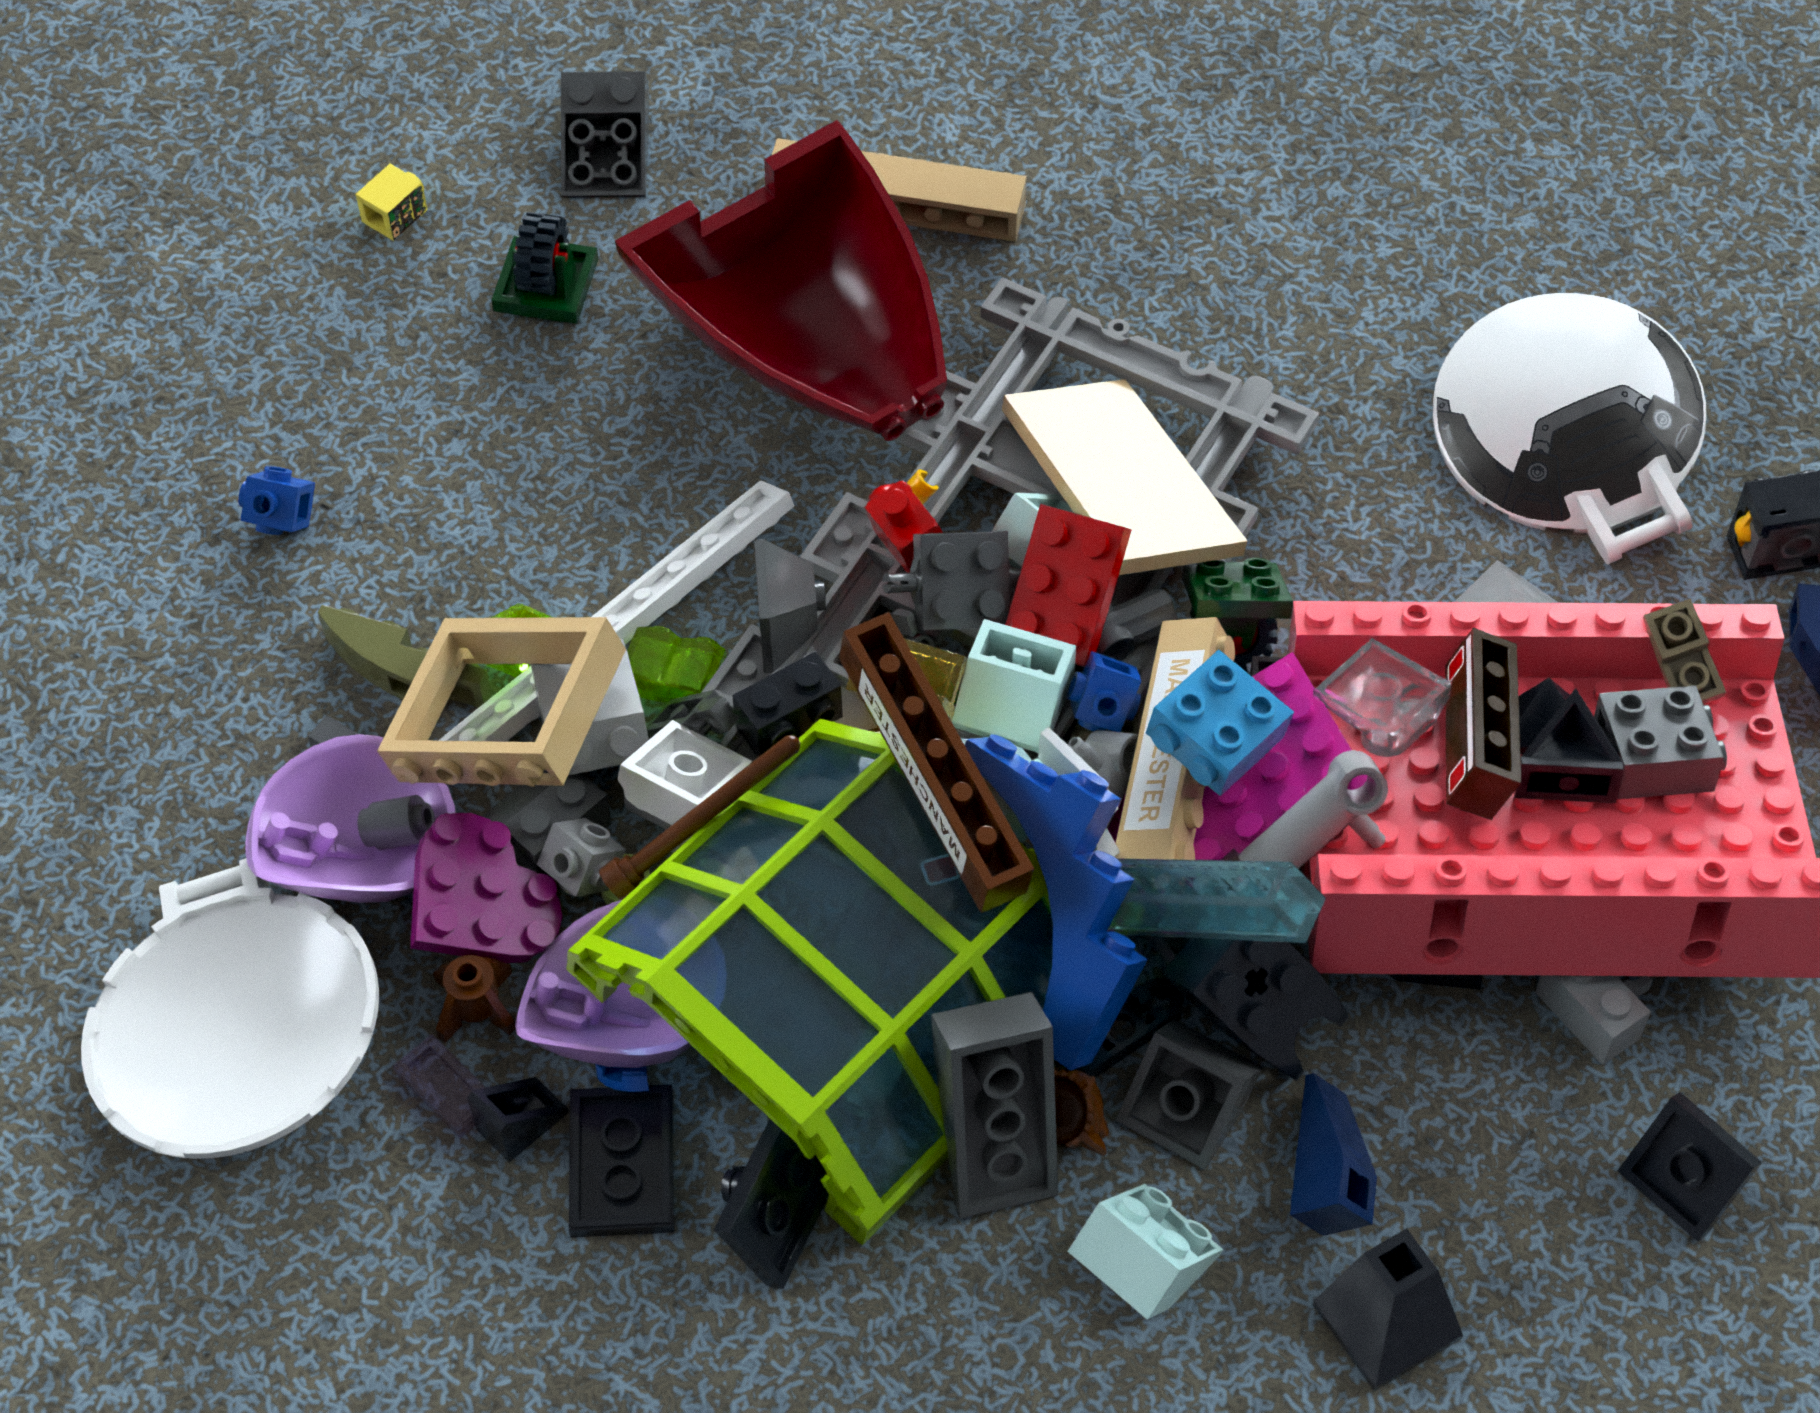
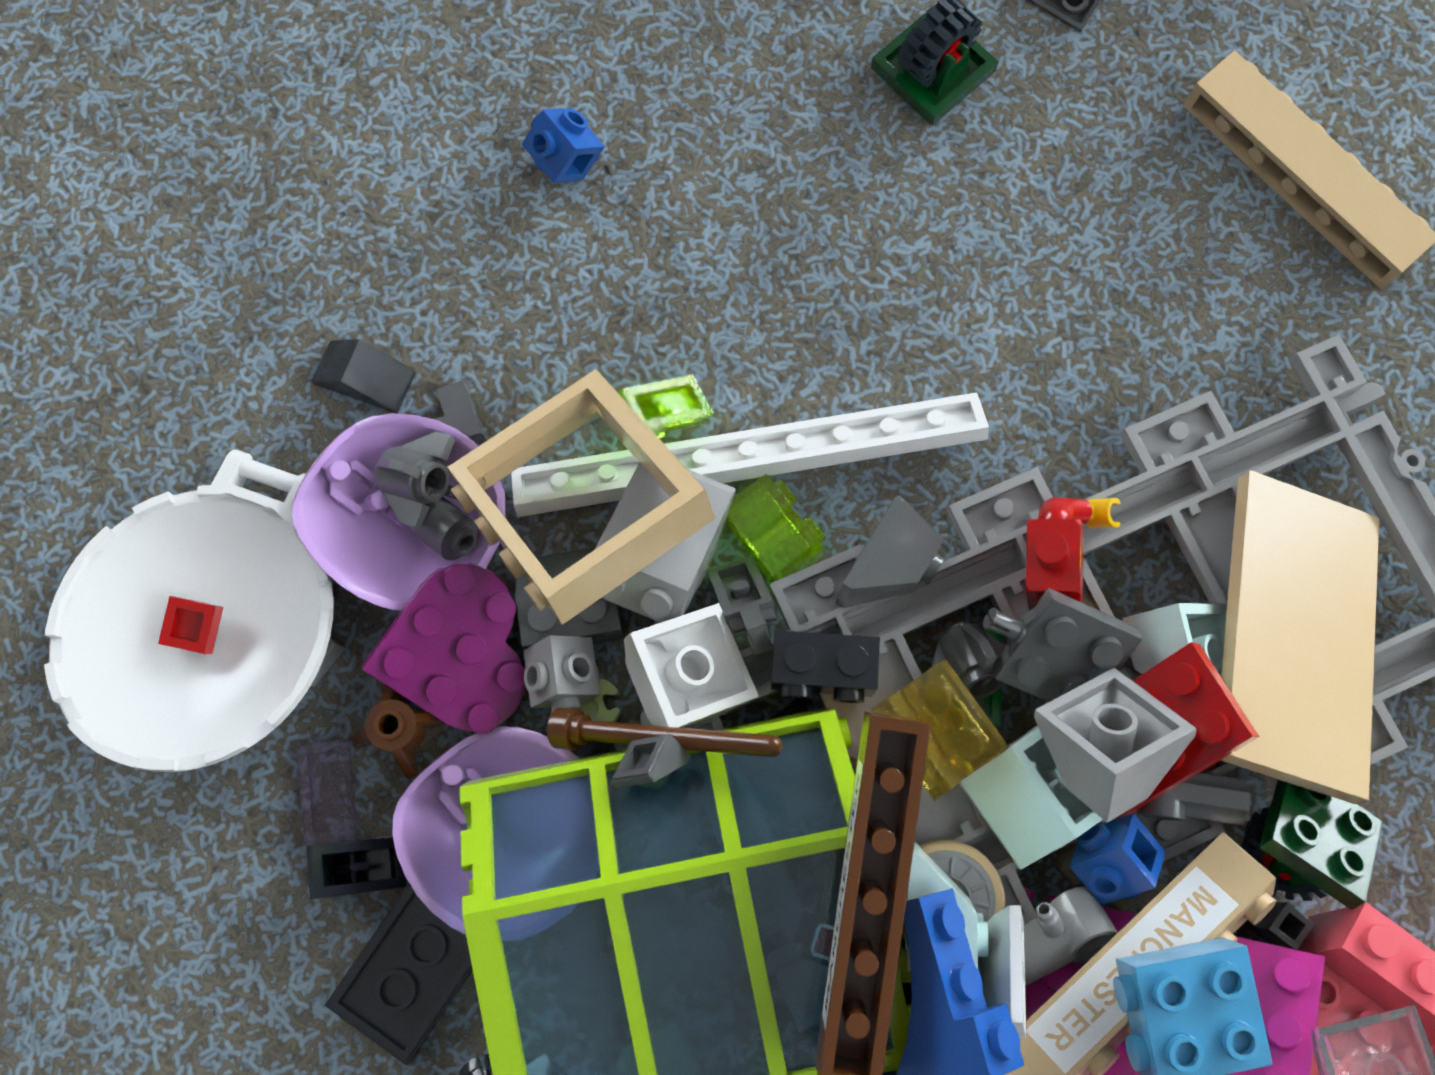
camera: 40 degrees right, 20 degrees up
(226, 767) = (364, 374): none -> black slope
(227, 1031) = (190, 625): none -> red plate
(349, 790) = (415, 476): none -> dark grey brick
(386, 656) = (552, 352): olive slope -> none
(705, 825) = (650, 760): none -> dark grey slope
(806, 287) = (1147, 239): dark red panel -> none
(1035, 601) = (1112, 742): none -> light grey slope

